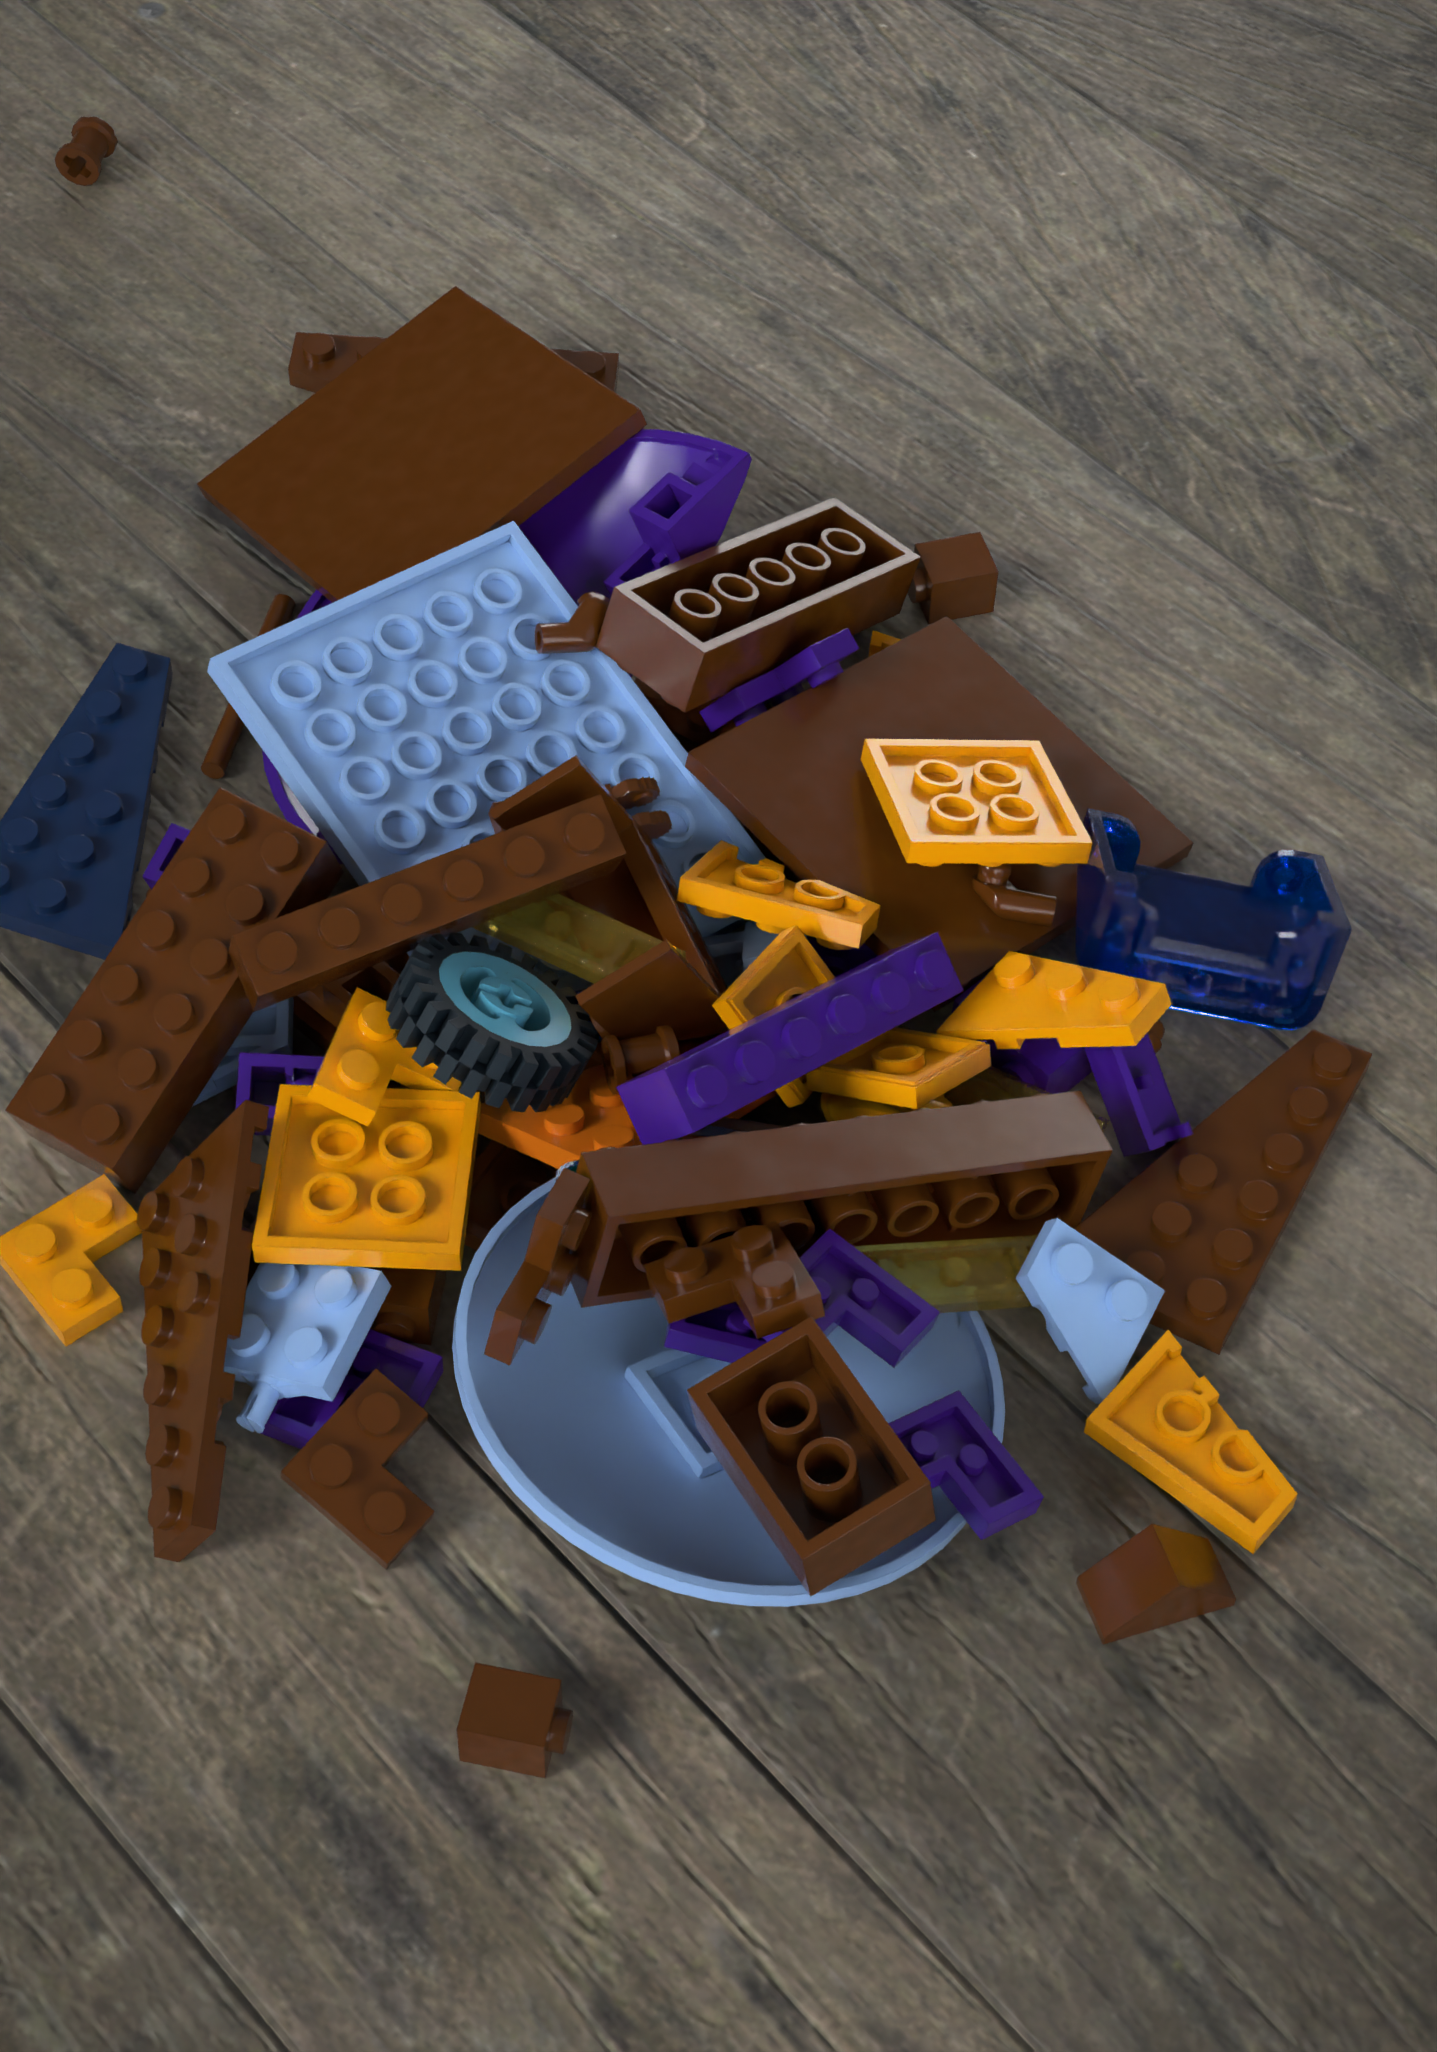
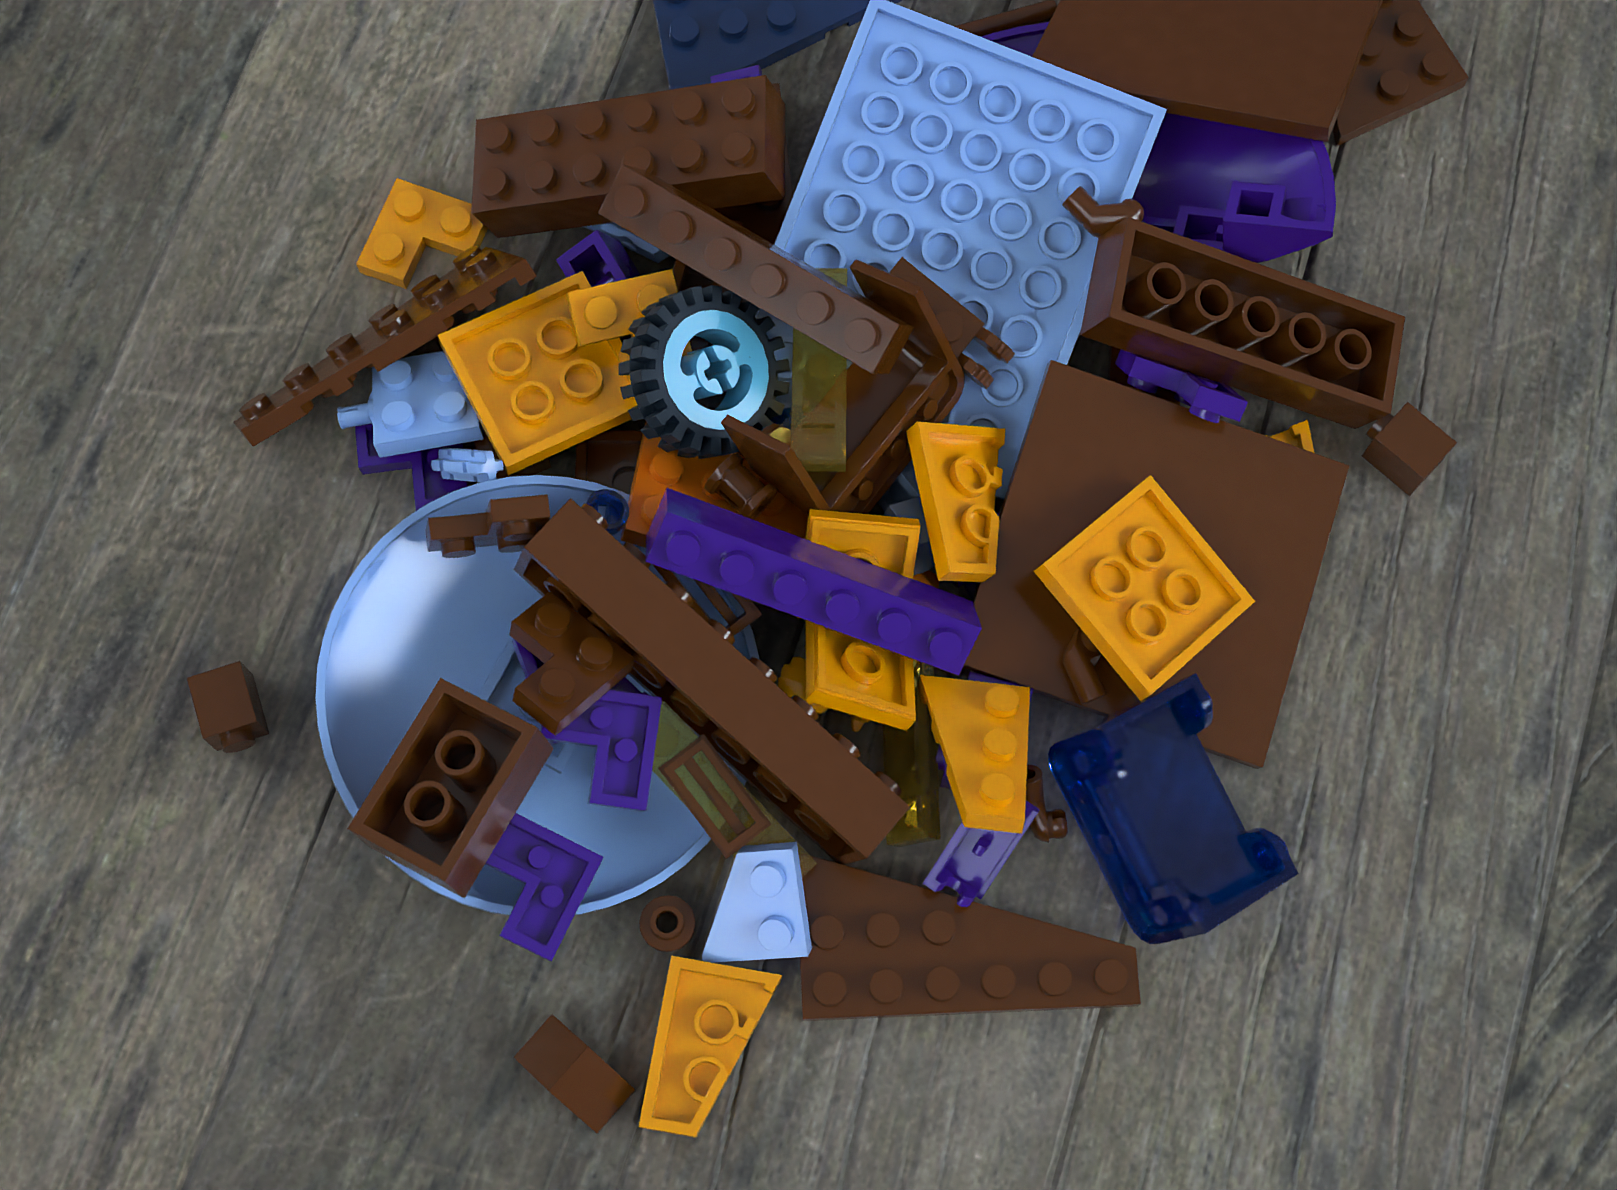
camera: 60 degrees right, 20 degrees up
(345, 1471) = (343, 499): reddish brown plate -> none
(415, 1308) = (467, 464): none -> light blue axle
(955, 1274) = (743, 834): none -> reddish brown tile
(1041, 1430) = (667, 941): none -> reddish brown plate

